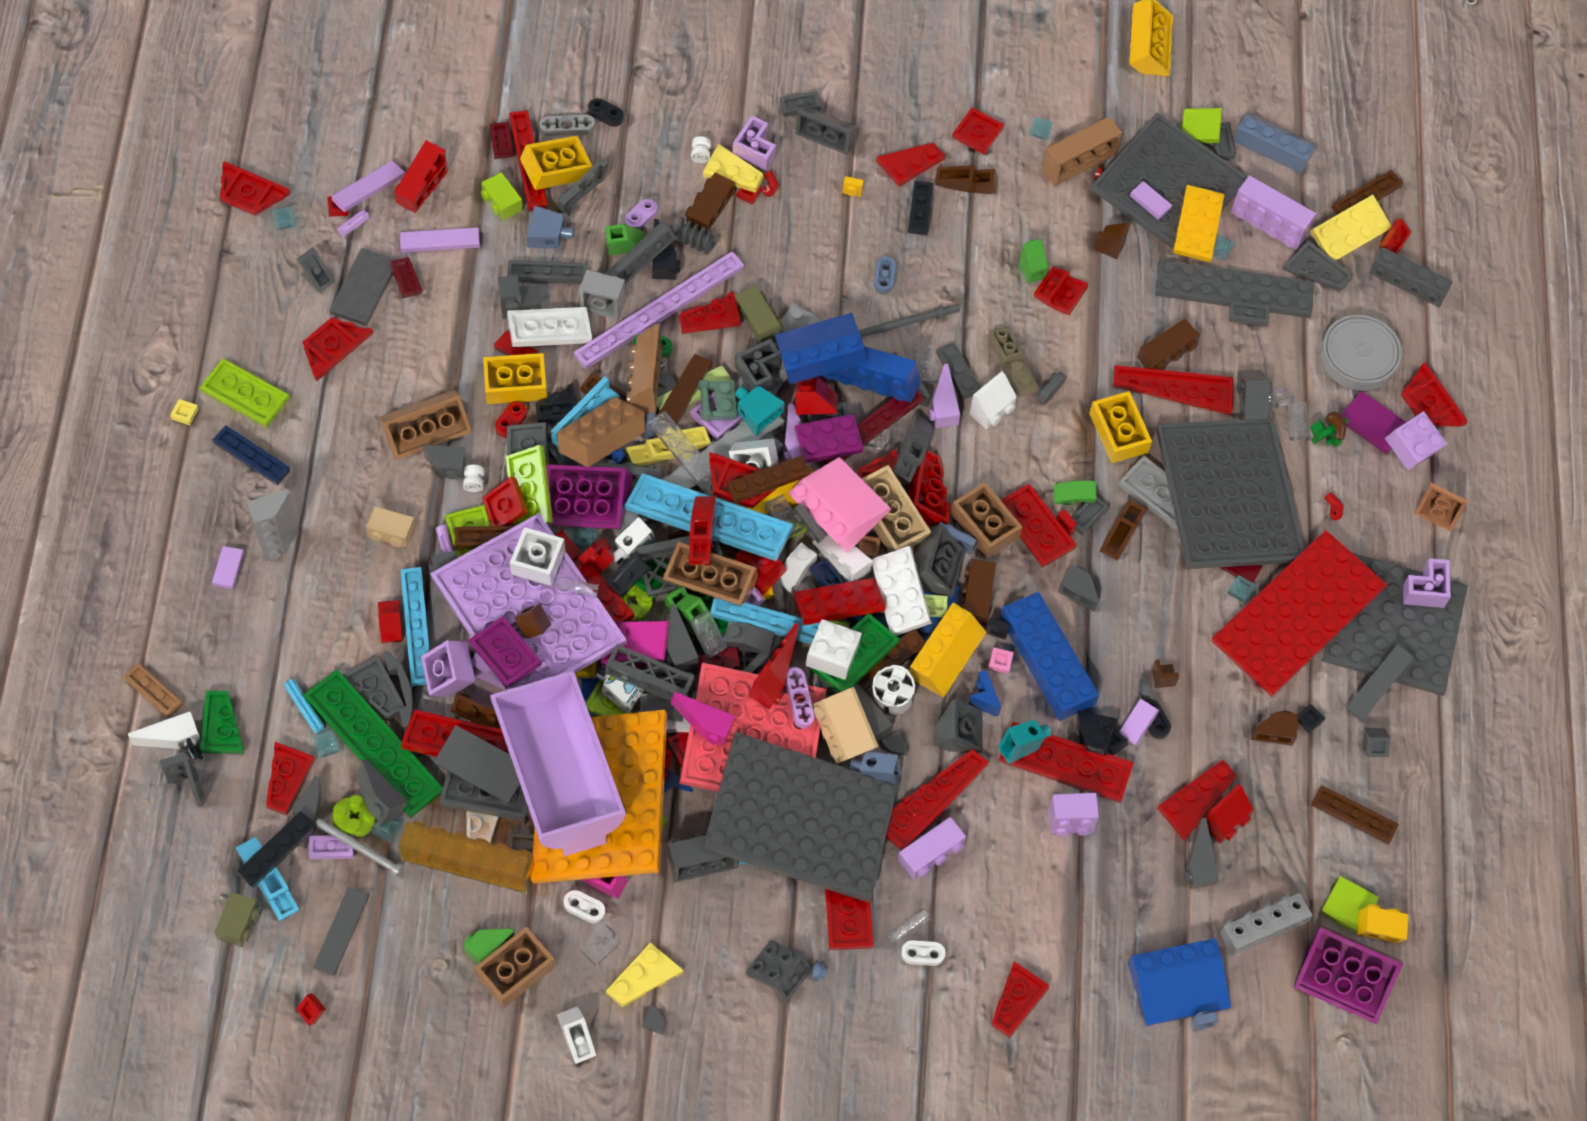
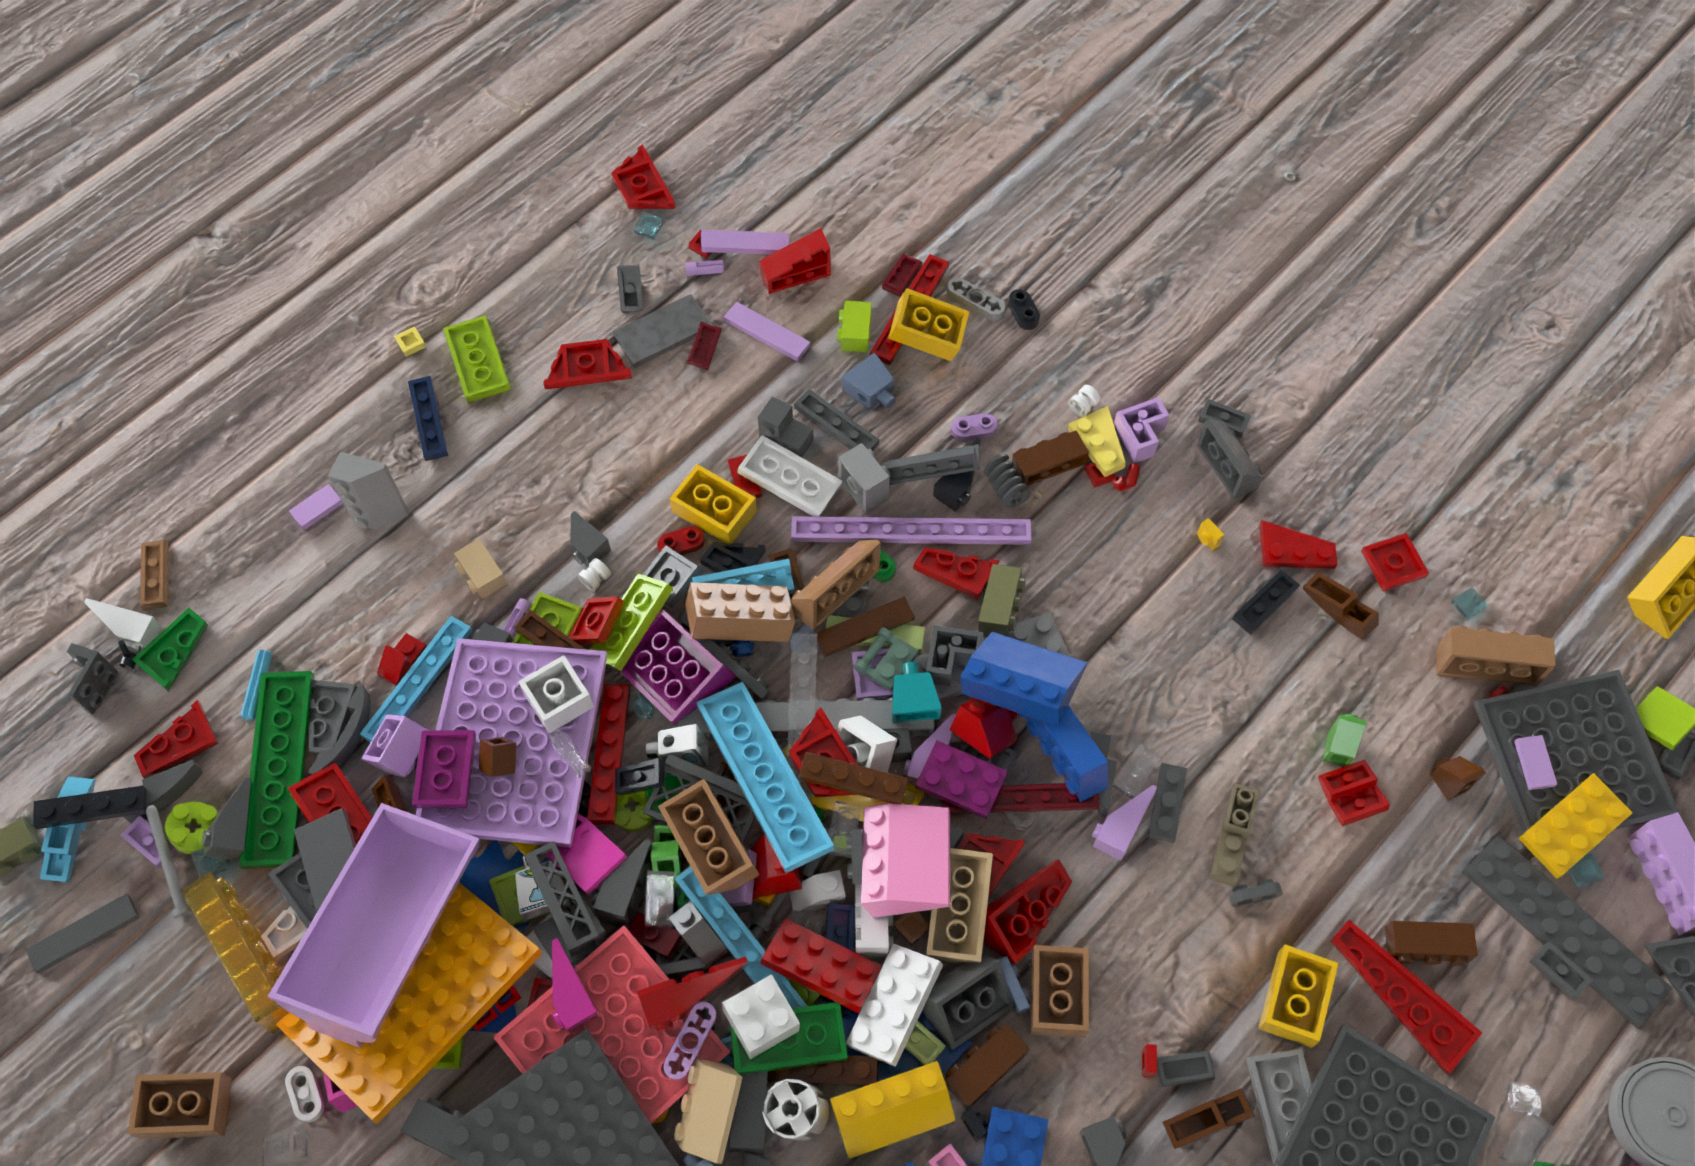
camera: 45 degrees right, 0 degrees up
(325, 744) = (237, 736): clear light blue plate -> none
(425, 424) = (598, 493): medium nougat slope -> none
(486, 942) = (182, 1057): bright green slope -> none
(582, 187) = (941, 363): dark grey wing -> none
(599, 554) = (637, 733): red slope -> none
(622, 238) = (931, 436): bright green slope -> none
(655, 450) = (778, 667): light yellow slope -> none
(702, 530) = (733, 781): red slope -> none
(884, 276) = (1168, 648): sand blue plate -> none
(913, 449) = (1043, 854): dark grey slope -> none
(939, 312) = (1197, 726): dark grey bar -> none
(993, 401) = (1174, 864): white slope -> none
(1040, 528) = (1114, 1038): red plate -> none
(1074, 491) = (1188, 1031): bright green slope -> none
(1254, 392) = (1493, 1072): dark grey brick -> none

